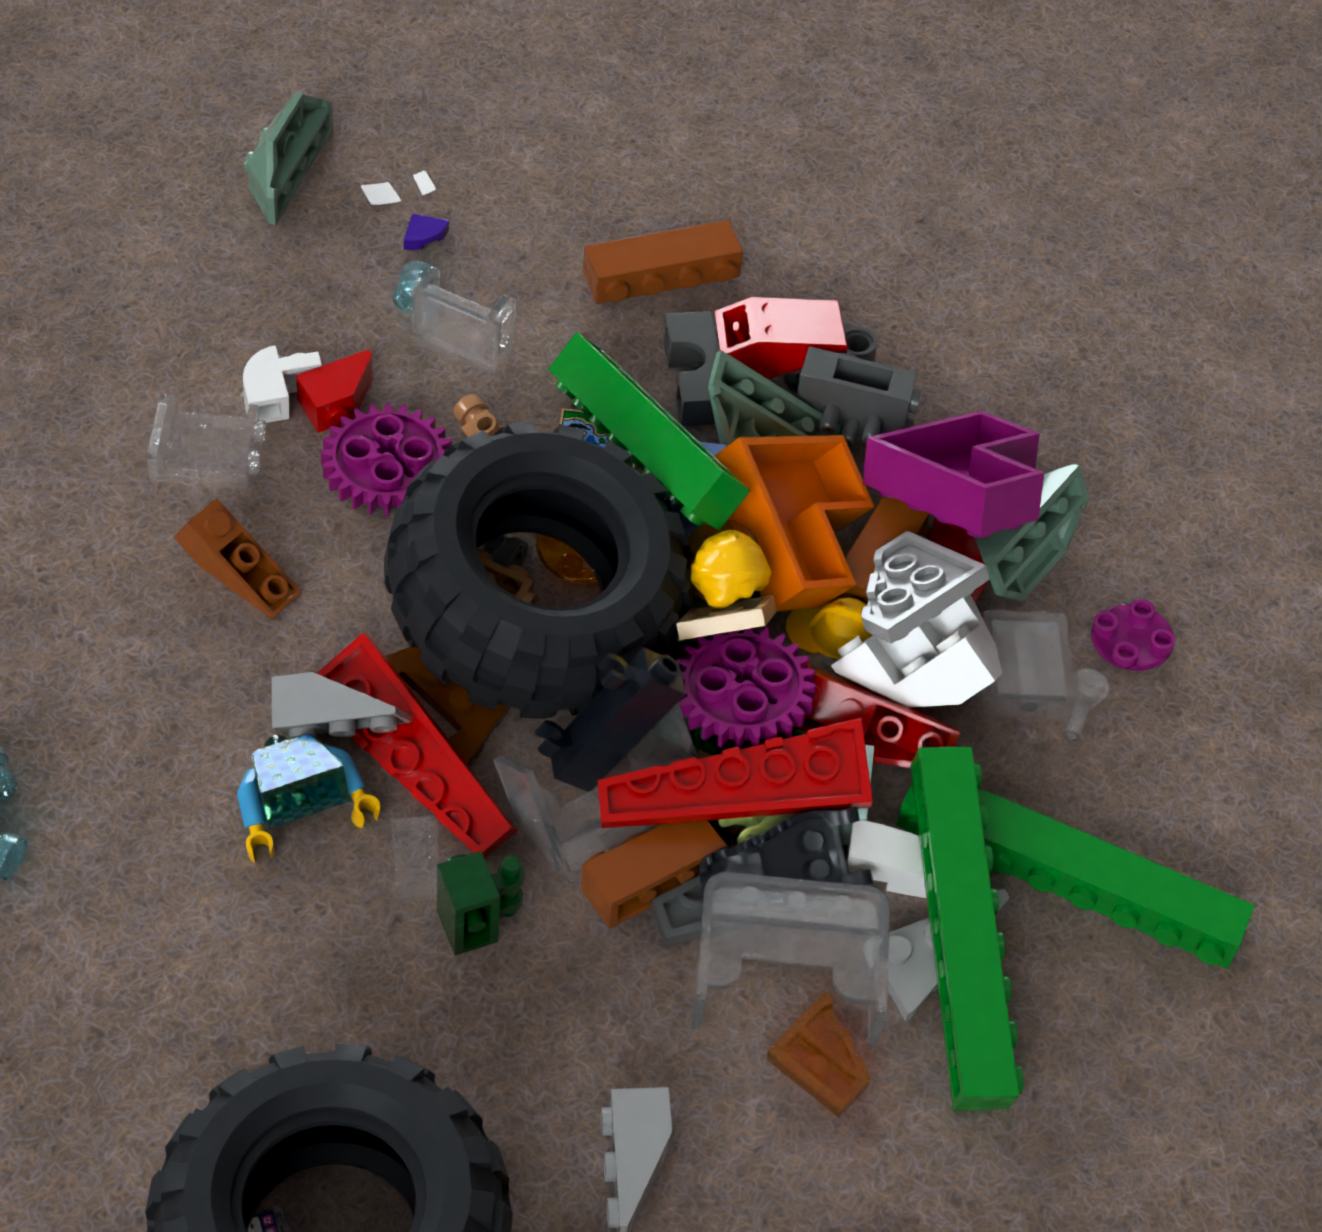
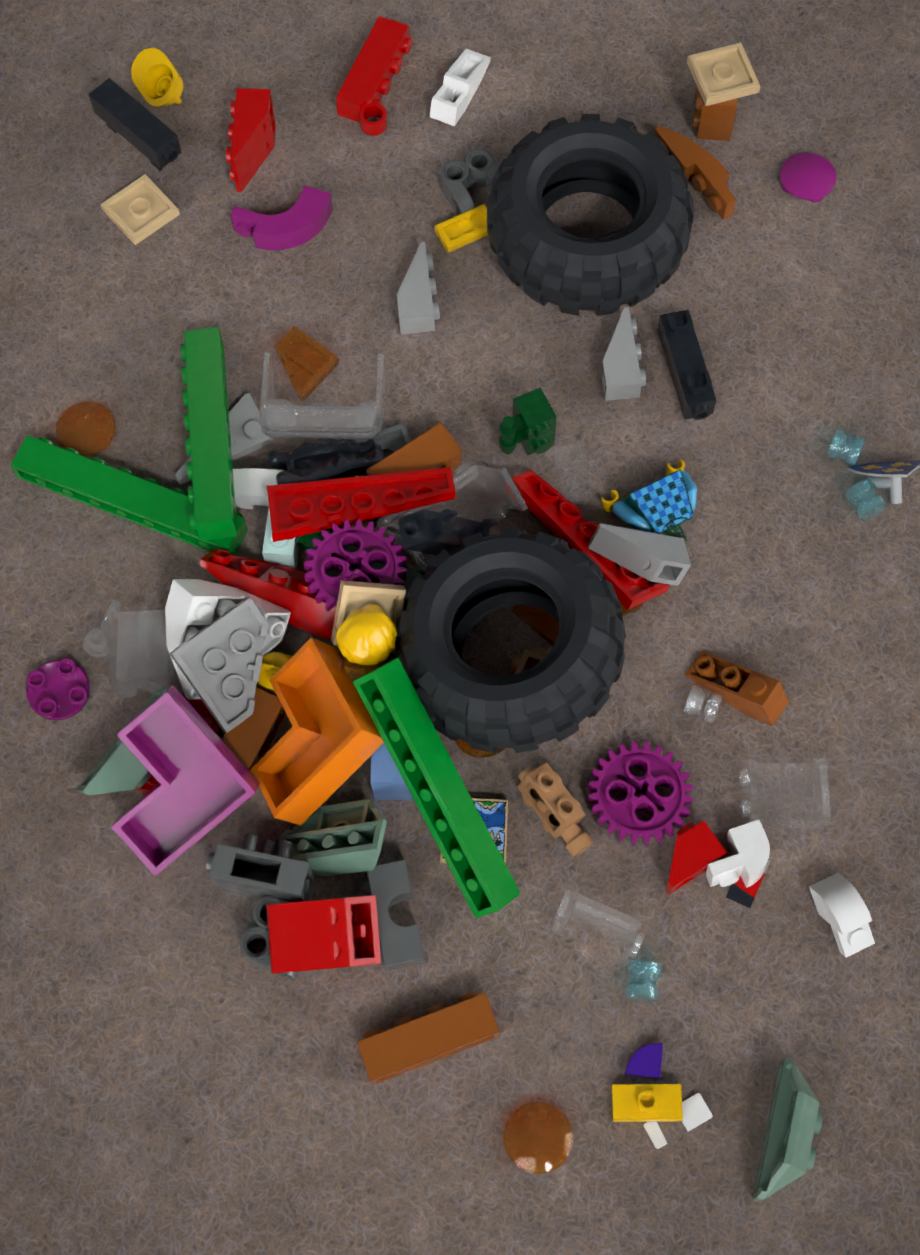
camera: 175 degrees left, 15 degrees up
(171, 320) = (846, 913): none -> white brick
(209, 996) = (686, 365): none -> black brick
(288, 544) = (696, 699): none -> clear wheel
(316, 998) = (620, 365): none -> light grey slope
(429, 199) = (647, 1103): none -> yellow plate
(549, 185) = (538, 1138): none -> clear orange dish
(1153, 983) = (86, 428): none -> clear orange dish

